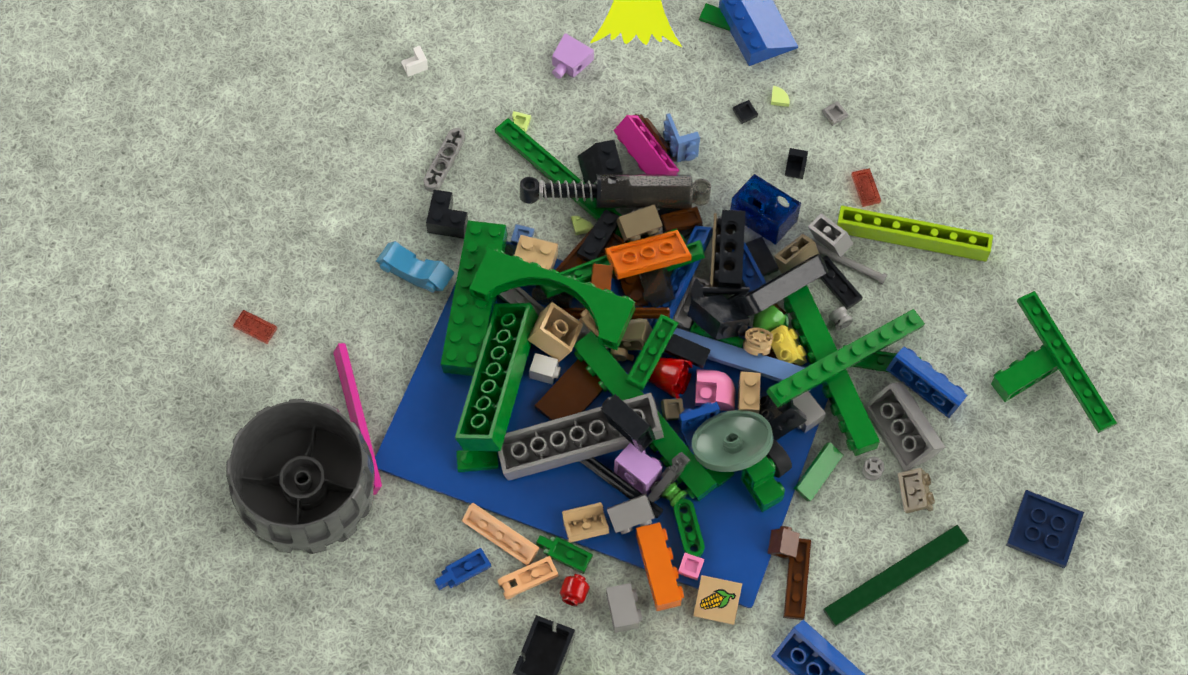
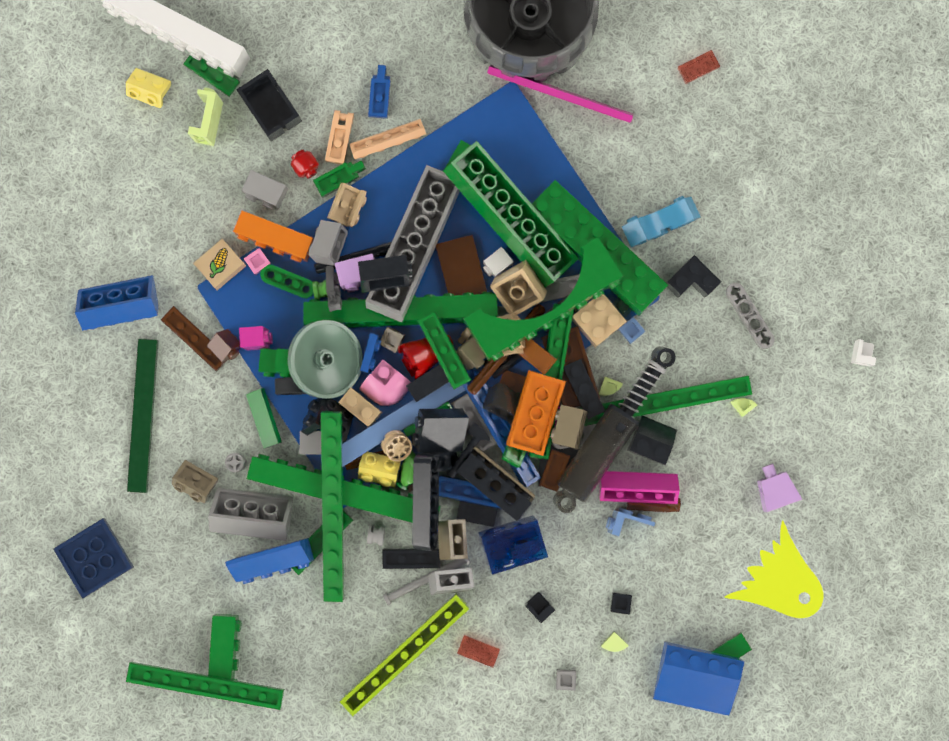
camera: 130 degrees right, 20 degrees up
(758, 515) = (255, 338): none -> dark pink brick

